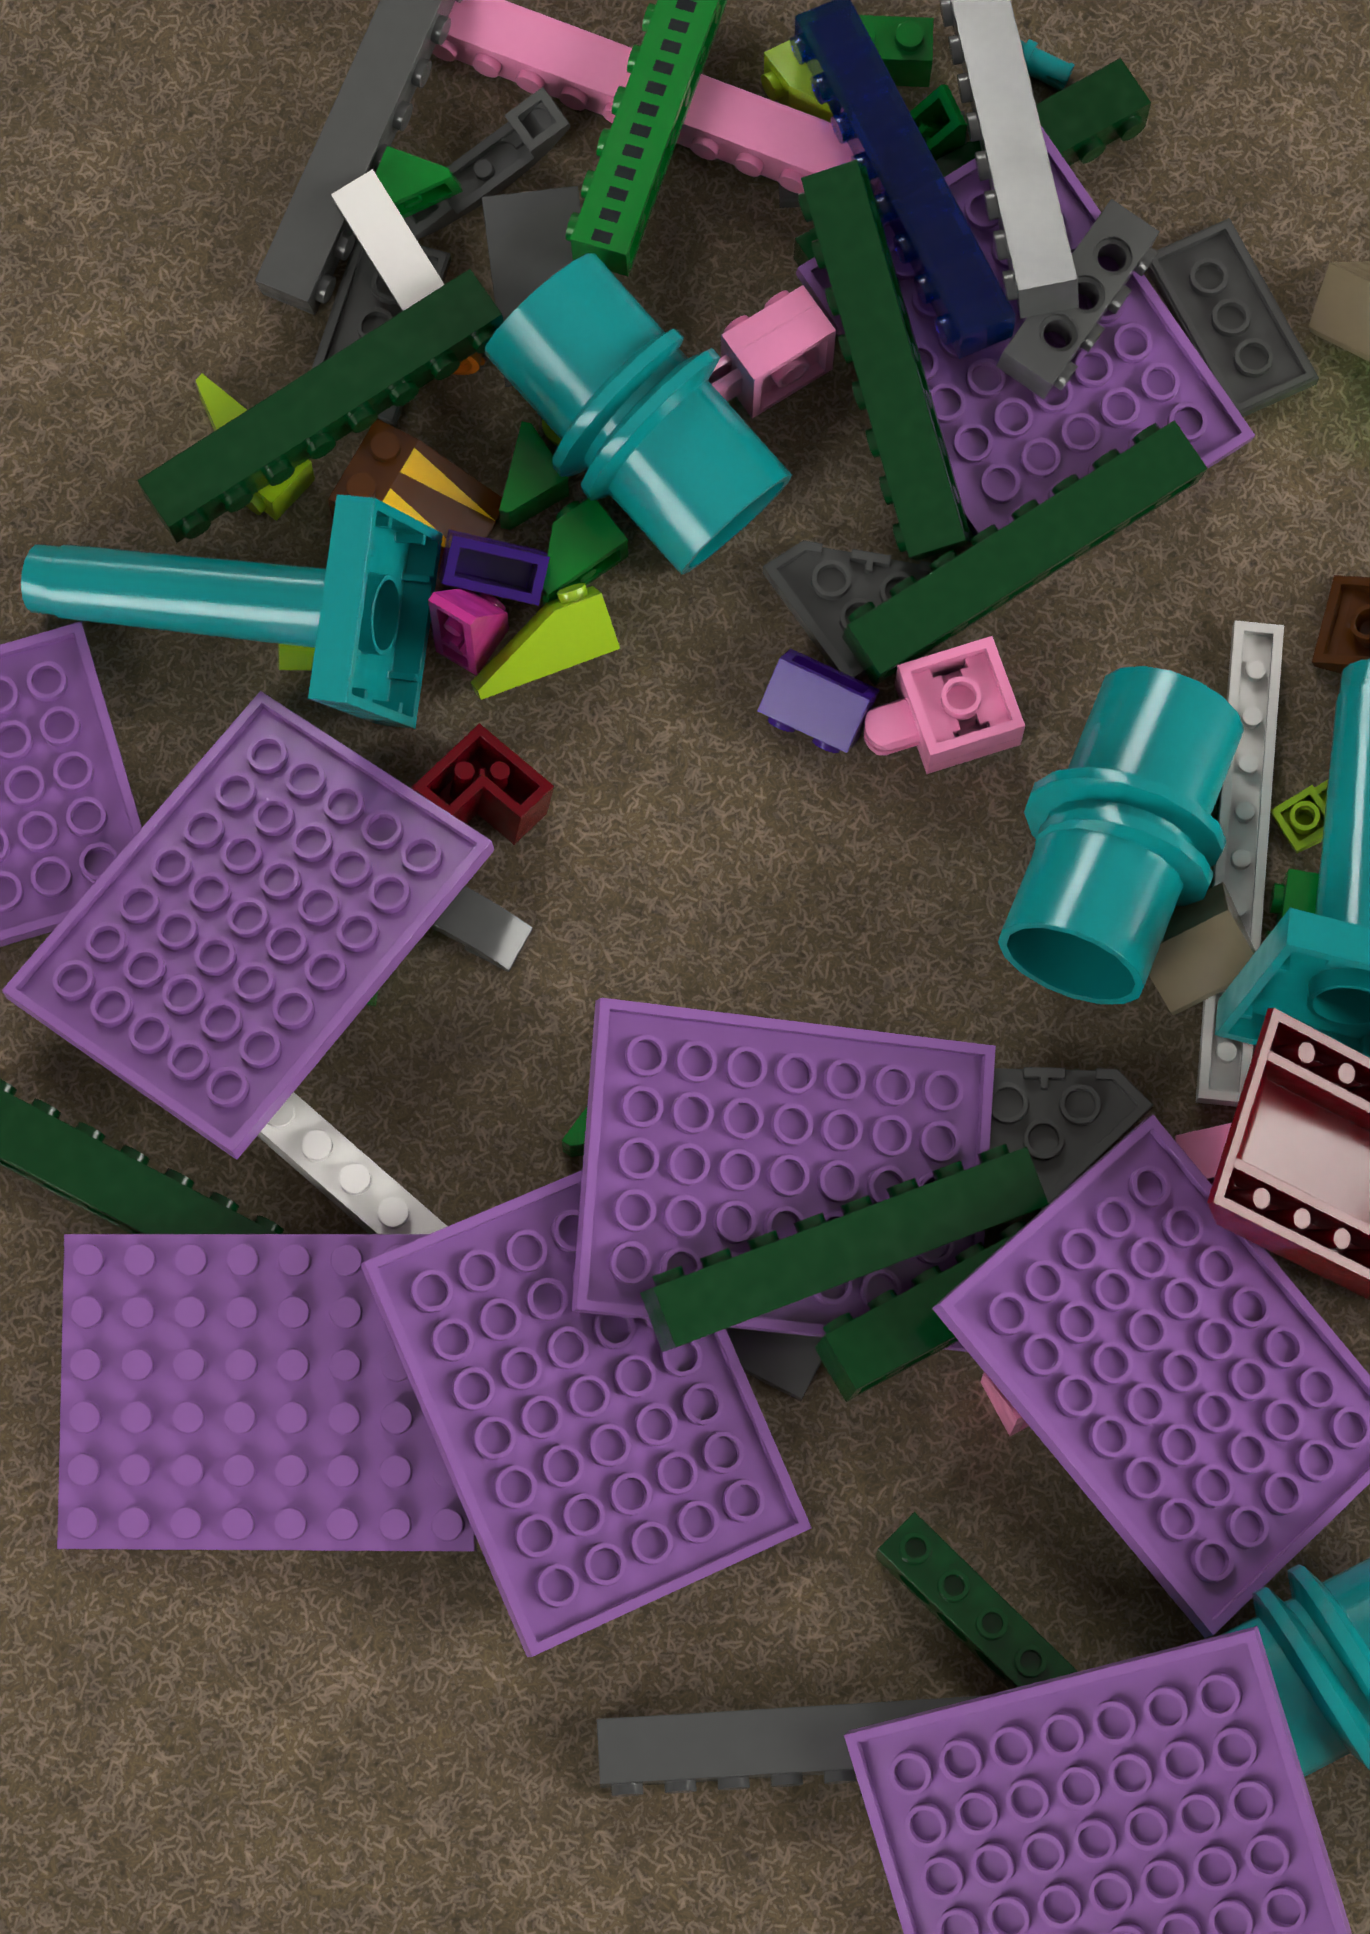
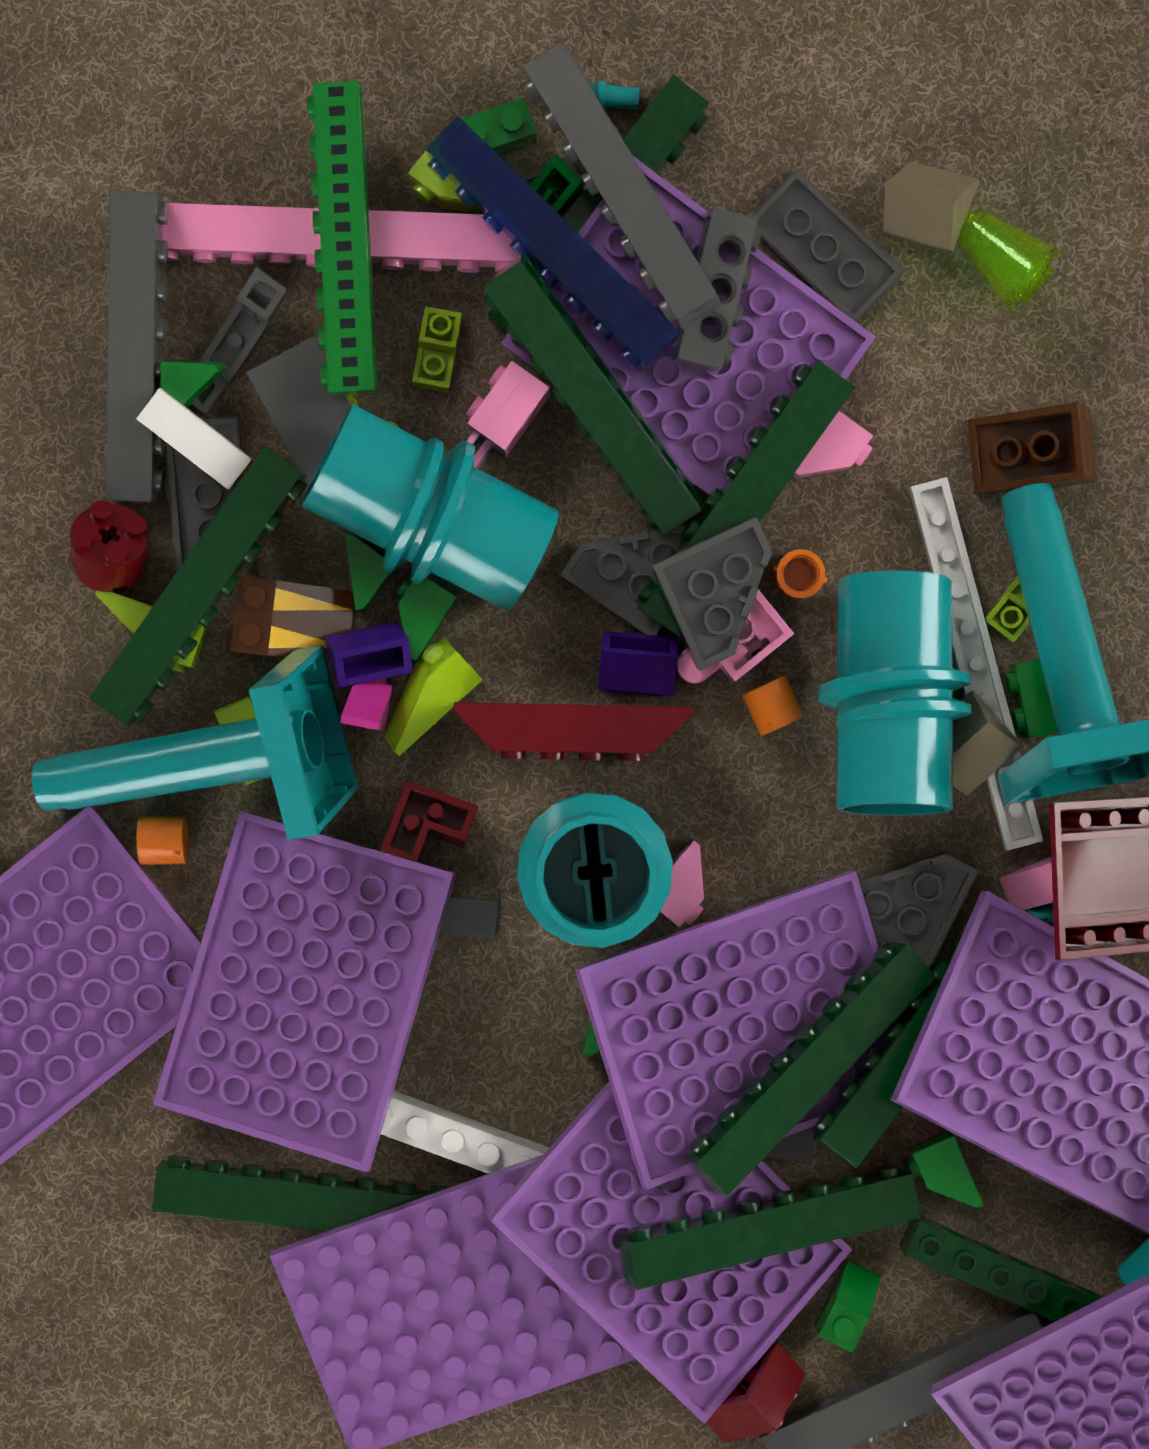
camera: 25 degrees left, 15 degrees up
(151, 694) = (162, 840): none -> orange piece
(235, 332) = (109, 546): none -> dark red brick
(610, 1662) = (760, 1398): none -> dark red brick
(712, 723) = (572, 728): none -> dark red slope
(713, 1434) = (767, 1227): none -> dark green brick
(714, 911) = (632, 889): none -> teal piece
(718, 267) = (437, 349): none -> lime slope
(766, 983) = (686, 887): none -> bright pink slope
(778, 1599) = (848, 1306): none -> green slope
(945, 629) = (714, 589): none -> dark grey plate
(967, 812) = (773, 705): none -> orange piece
(969, 1469) = (943, 1169): none -> green slope
(1057, 671) = (799, 574): none -> orange piece
(1155, 544) = (837, 448): none -> bright pink slope

